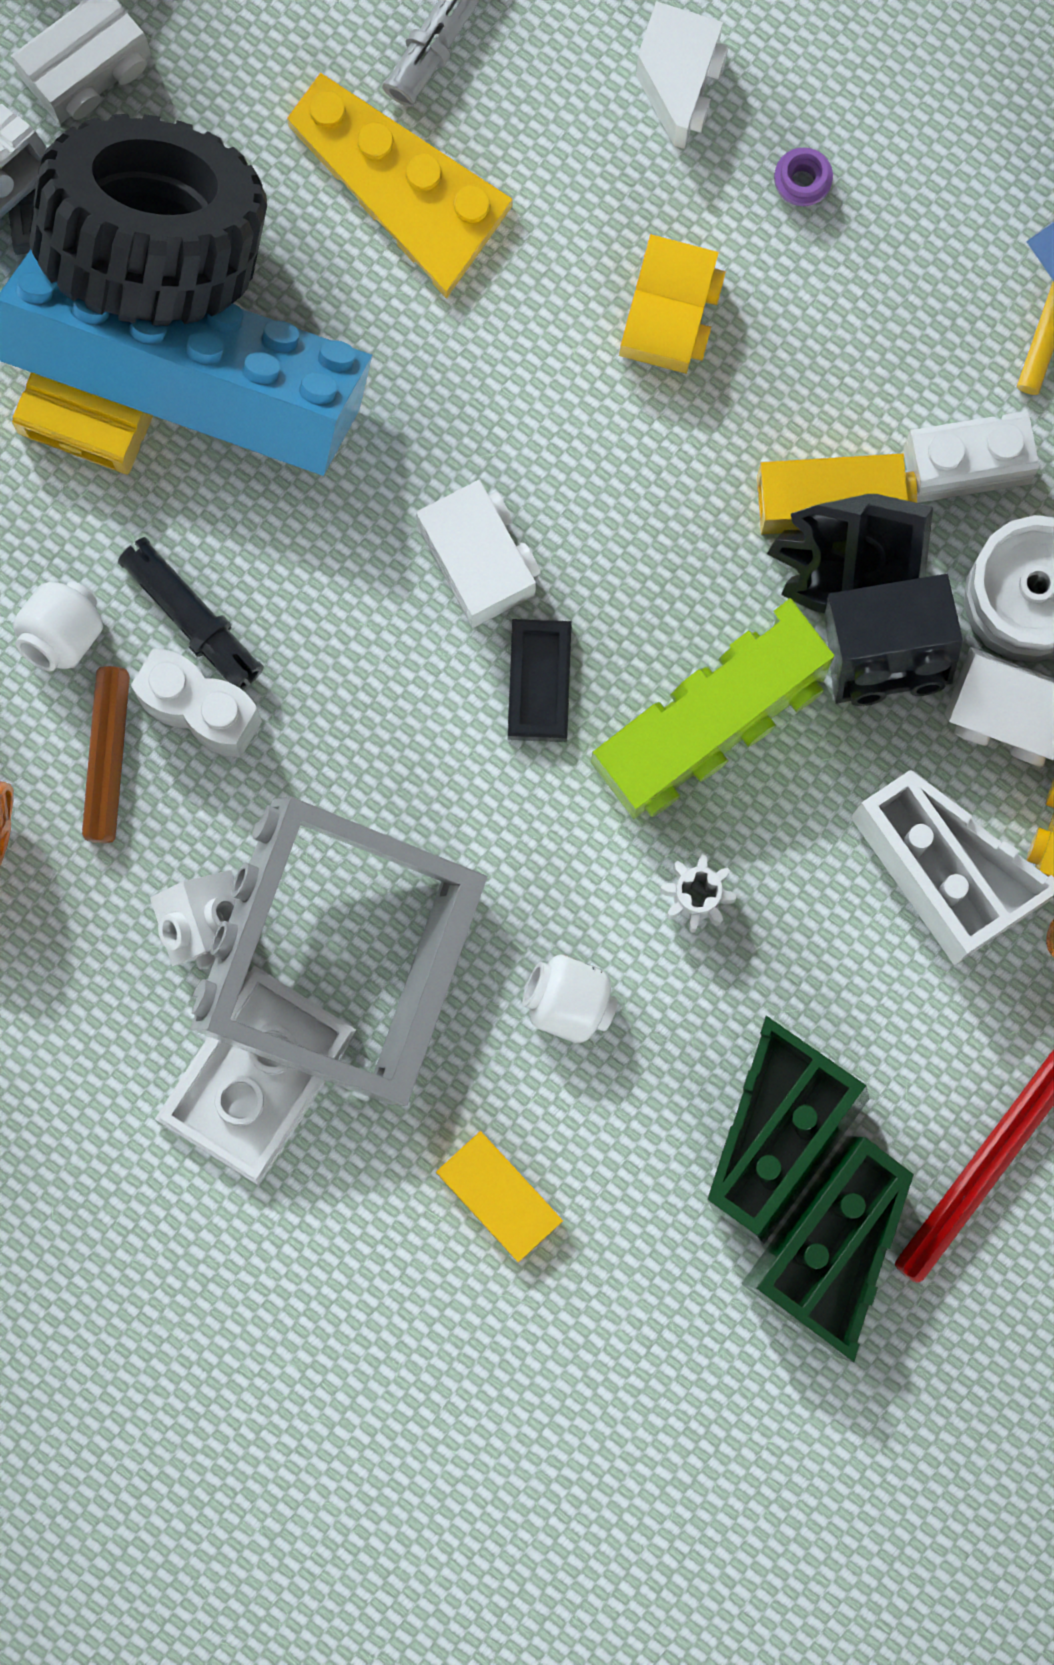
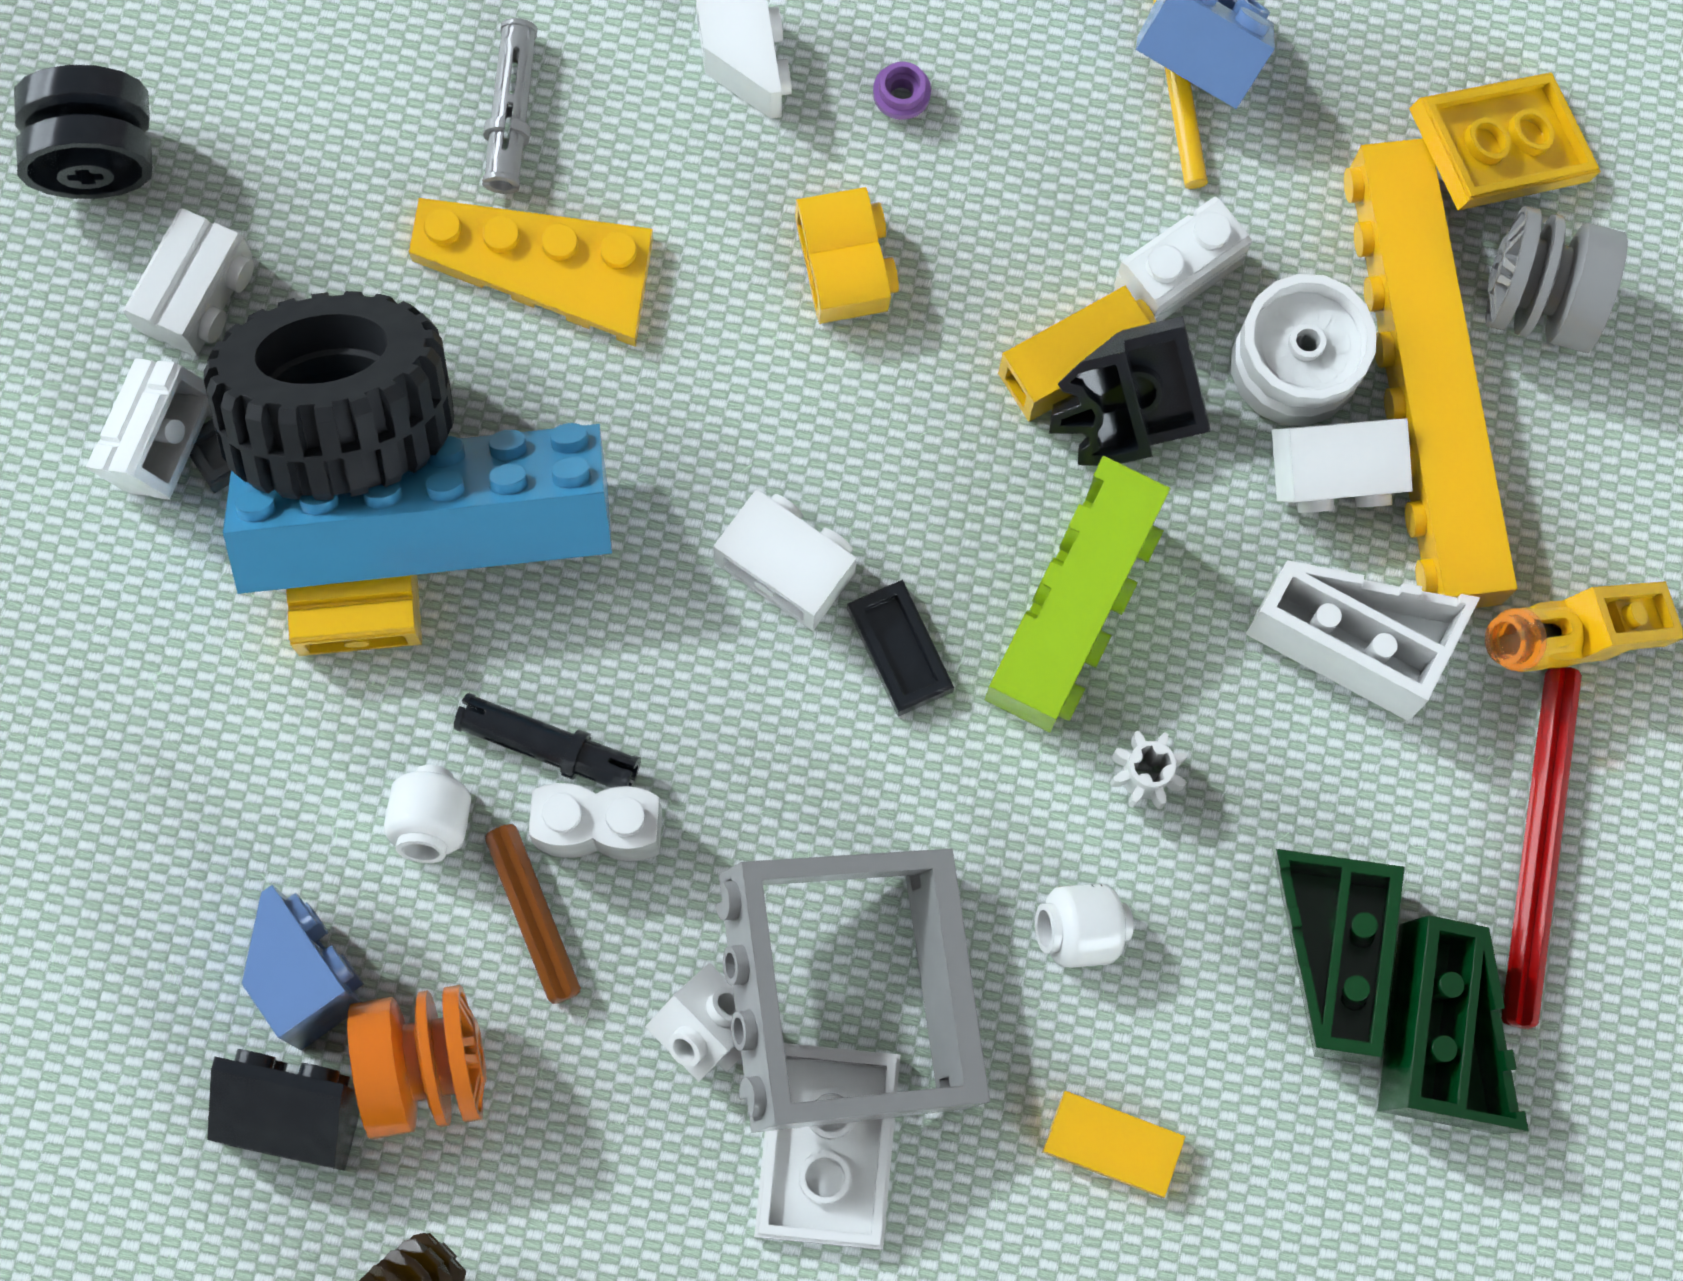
camera: 30 degrees left, 5 degrees down
(893, 639) = (1207, 452): black slope -> none

